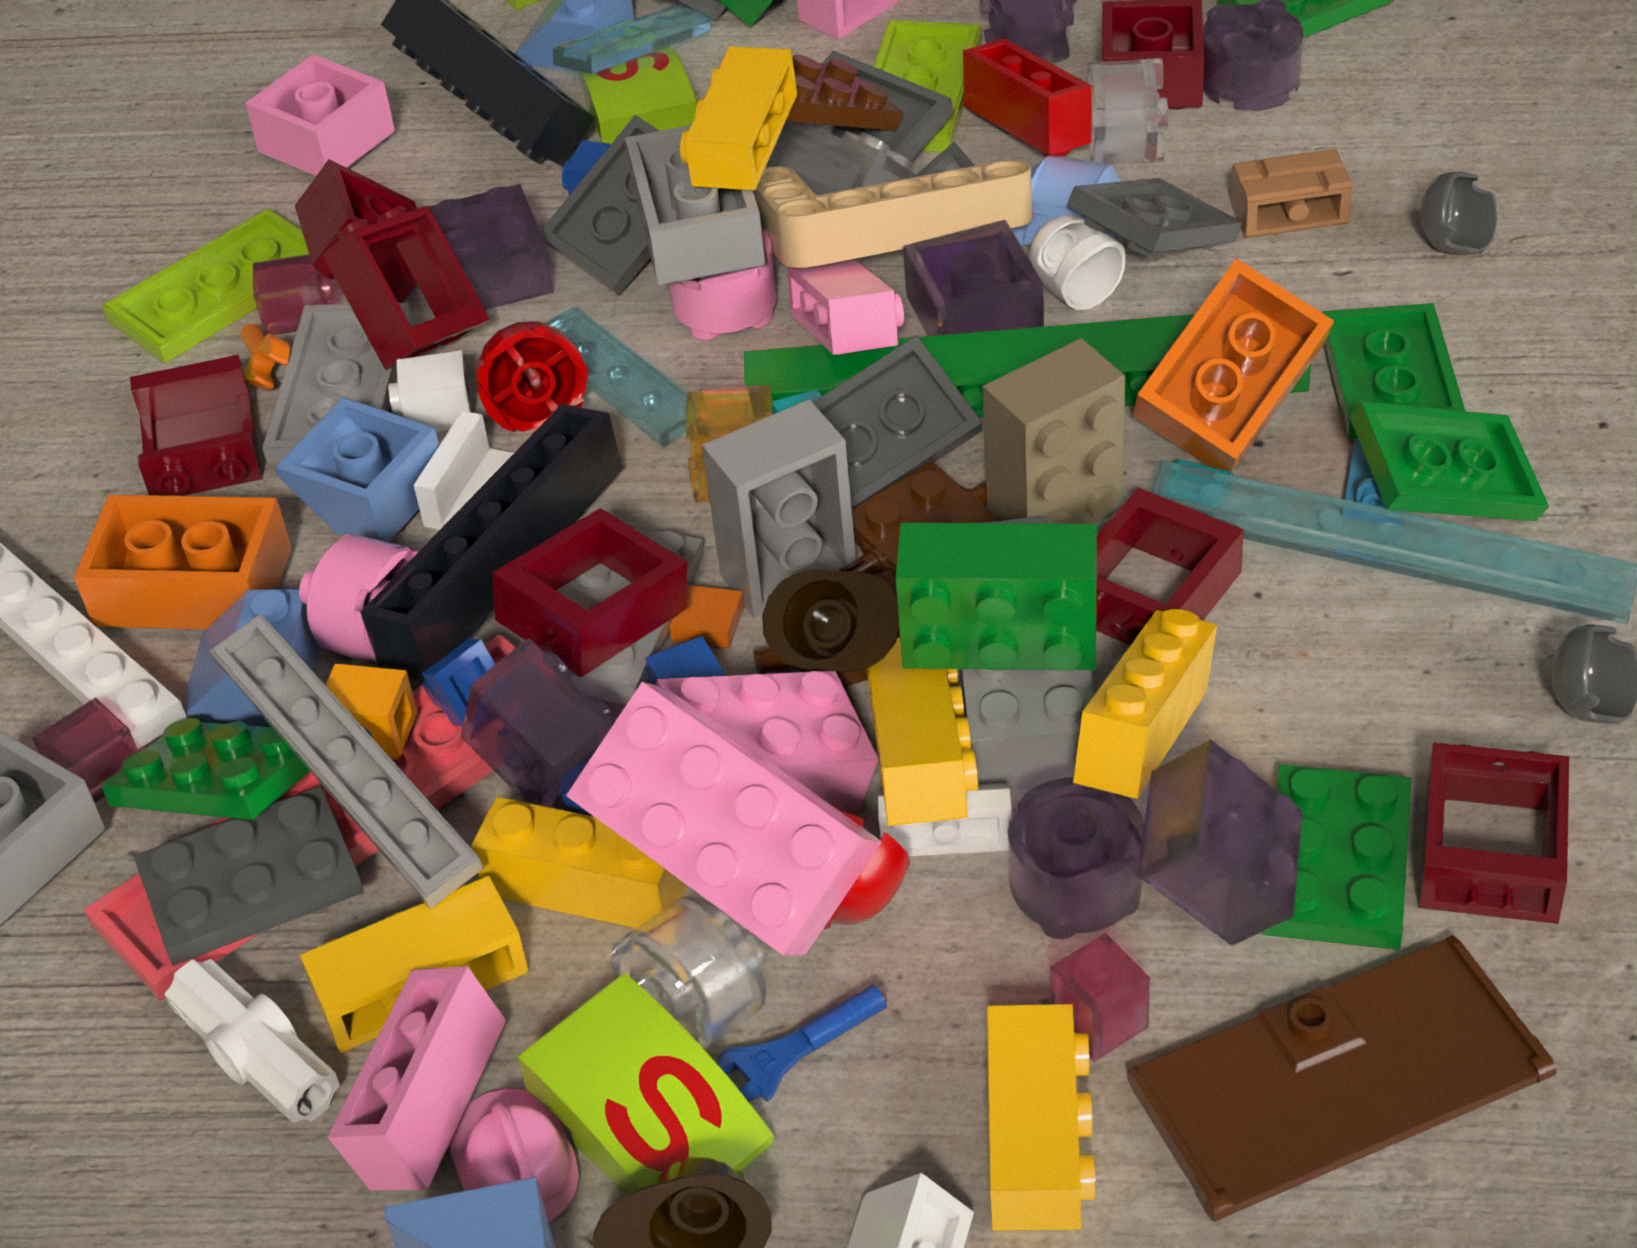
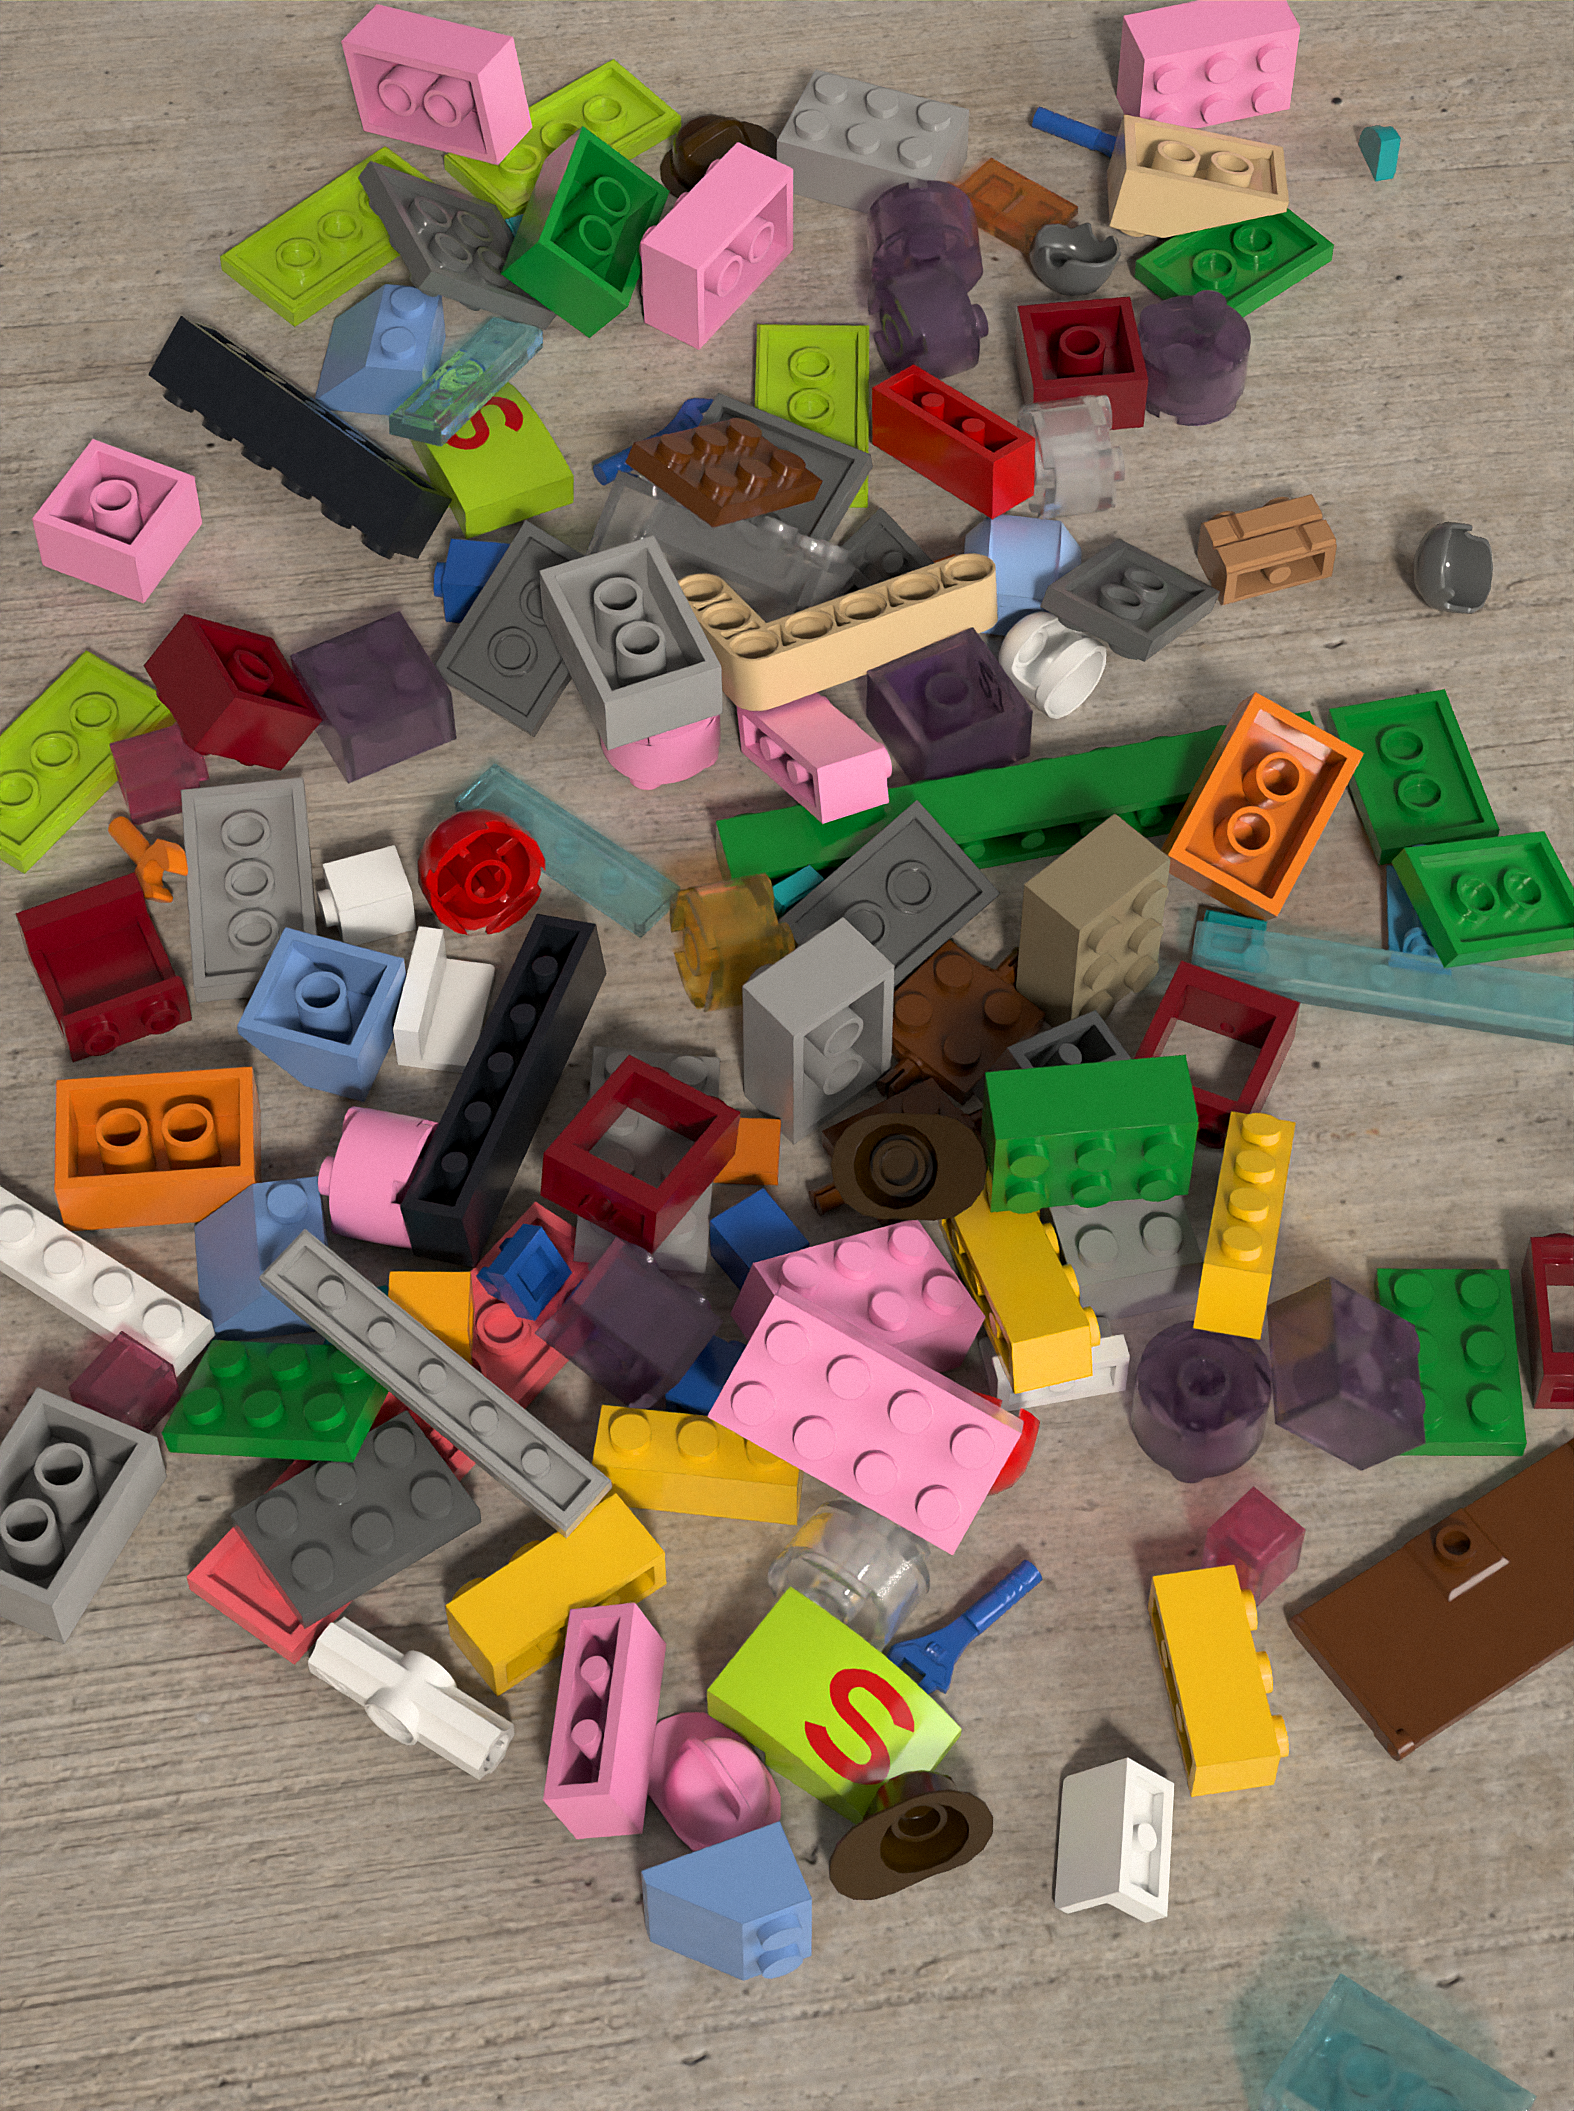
camera: 15 degrees left, 10 degrees up
(434, 270) = (342, 753): dark red window -> none
(739, 118) = (674, 546): yellow brick -> none

